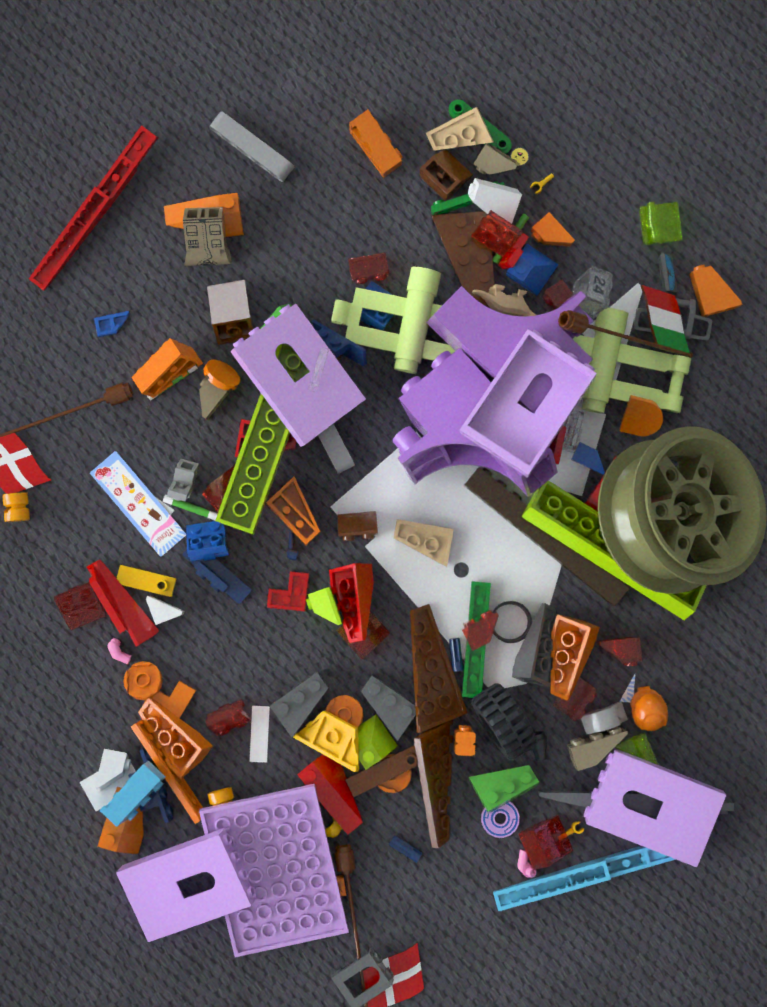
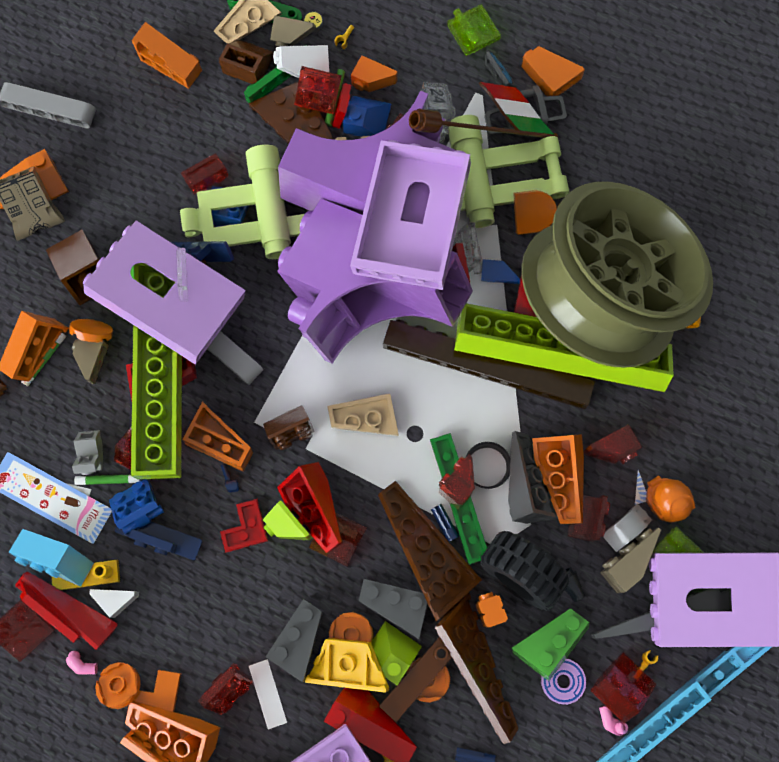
camera: 20 degrees left, 10 degrees down
(124, 556) = (51, 556): none -> medium azure wedge

